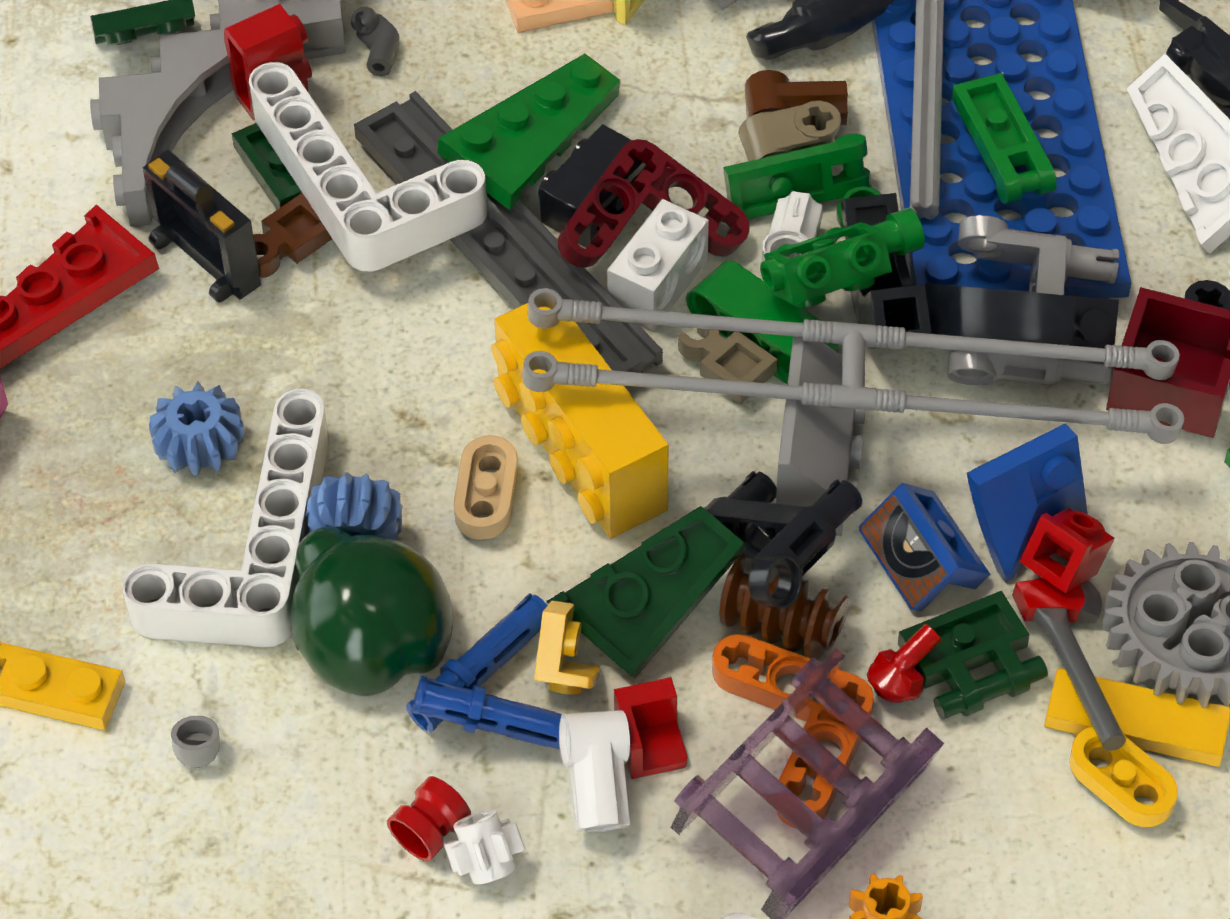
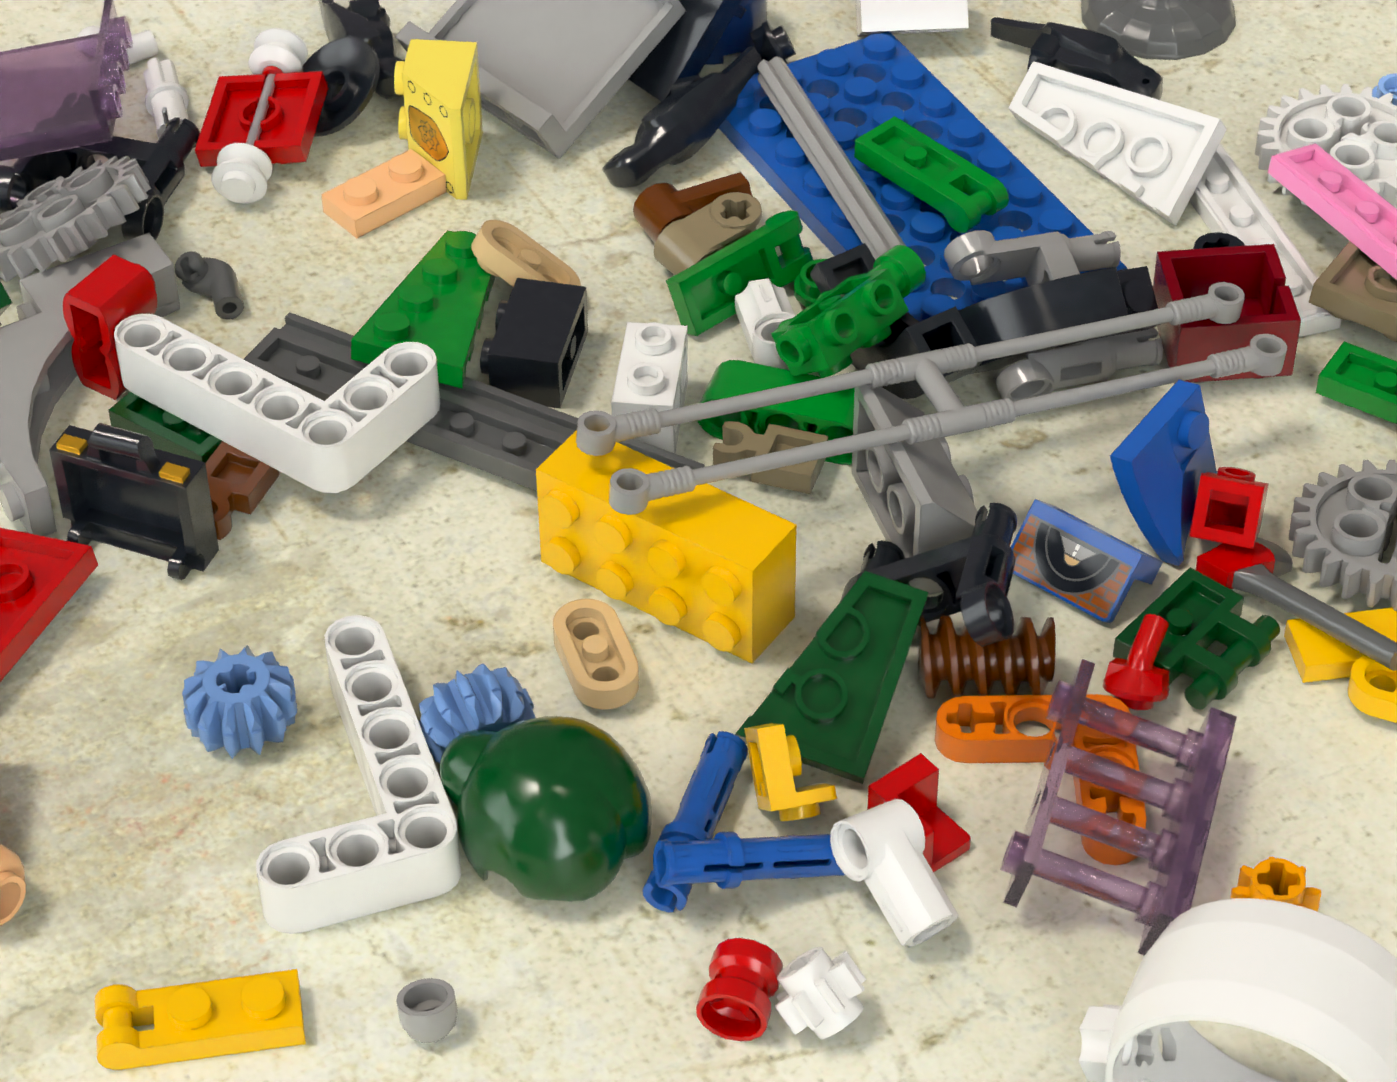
camera: 25 degrees left, 10 degrees down
(621, 104) = (513, 255): none -> tan plate
(649, 189) = (604, 322): dark red beam -> none

